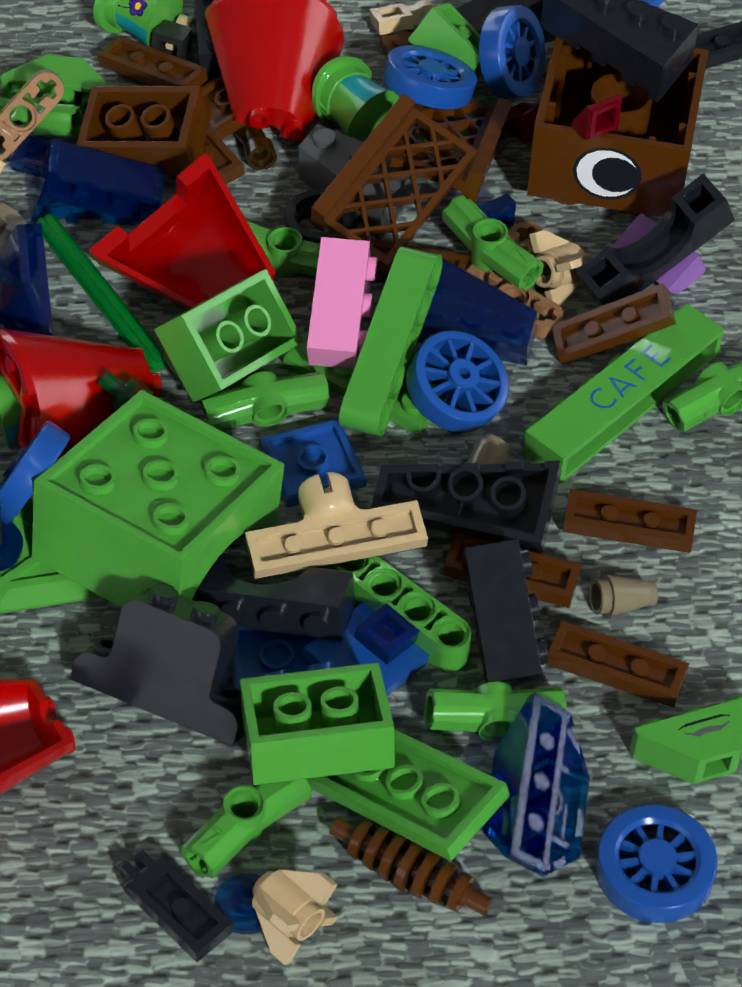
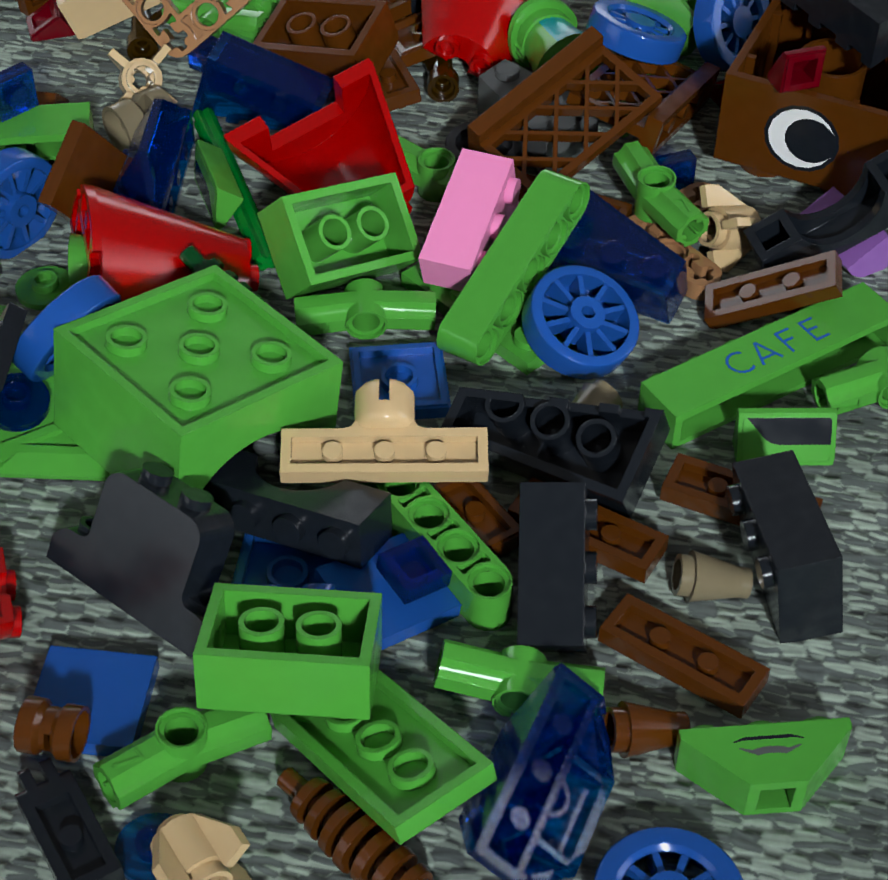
camera: 15 degrees right, 5 degrees down
(87, 294) = (216, 183): none -> bright green slope
(138, 824) = (52, 728): none -> reddish brown wheel
(151, 795) = (108, 682): none -> blue tile
(426, 574) = (482, 514): none -> reddish brown plate
(603, 730) = (642, 728): none -> reddish brown cone
(652, 457) = (777, 430): none -> bright green slope
(681, 556) = (789, 546): none -> black wedge

